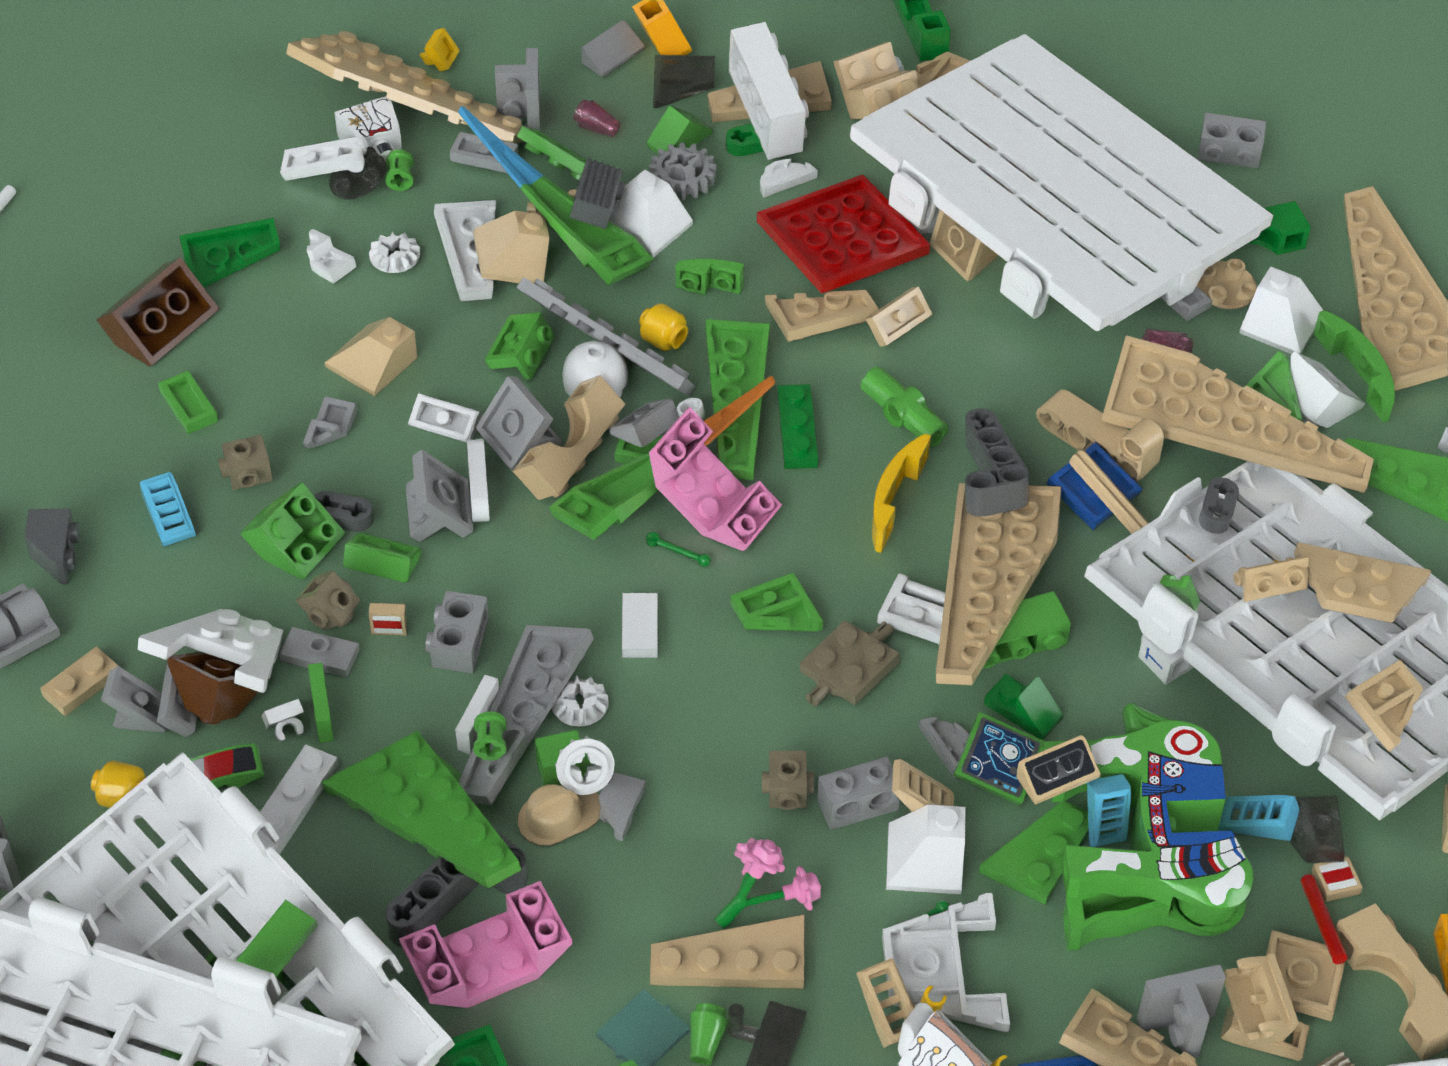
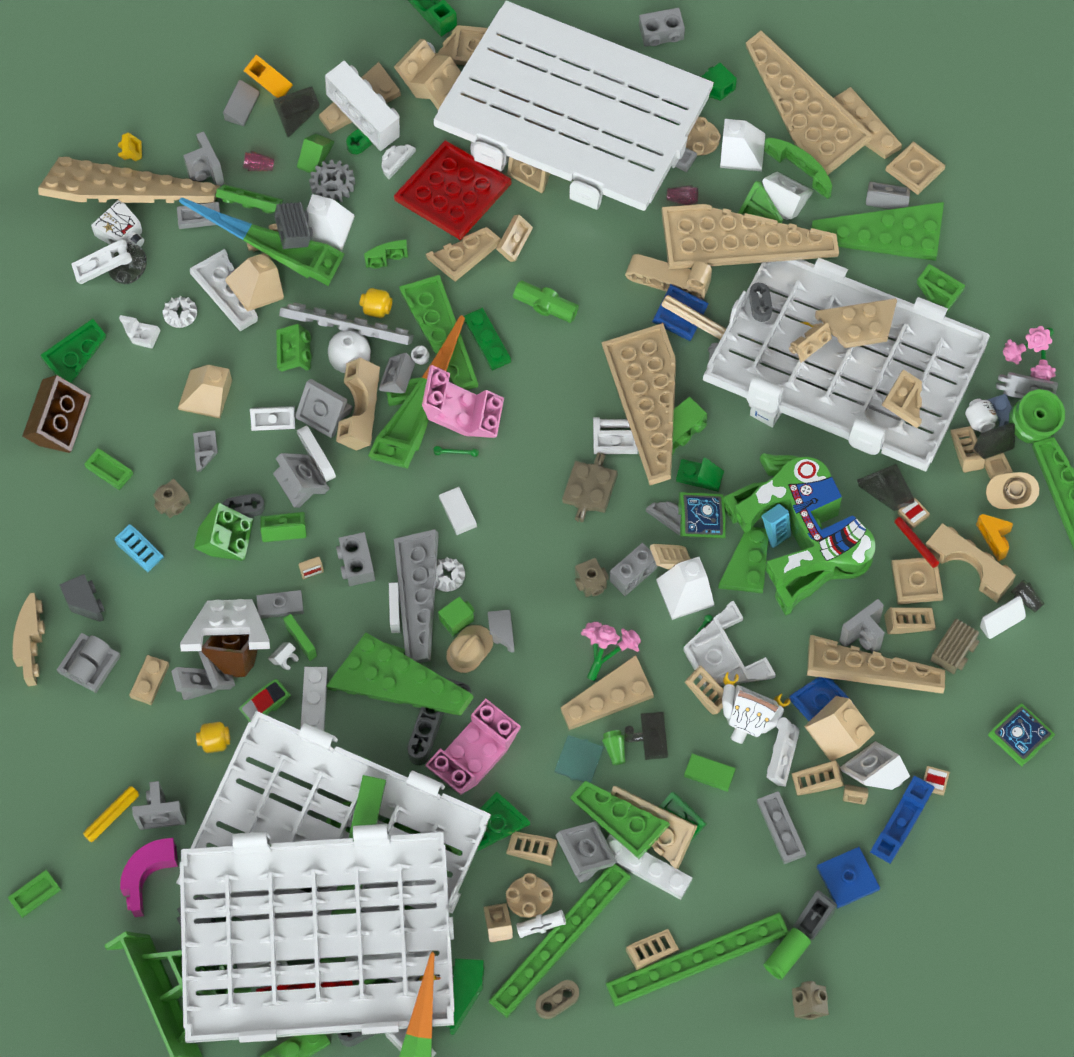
camera: 20 degrees left, 15 degrees up
(328, 601) = (271, 571): dark tan brick -> none
(399, 170) = (151, 259): bright green bush -> none
(493, 735) = (411, 626): bright green bush -> none
(595, 776) = (482, 620): white gear -> none
(777, 606) = (532, 467): bright green wing -> none
(906, 463) = (566, 340): yellow slope -> none
(1002, 476) = (630, 333): dark grey beam -> none
(1057, 769) = (745, 518): slope -> none
(1183, 589) = (766, 374): bright green tile -> none
(1260, 1000) = (904, 607): tan hinge -> none
(1279, 828) = (875, 496): medium azure slope -> none

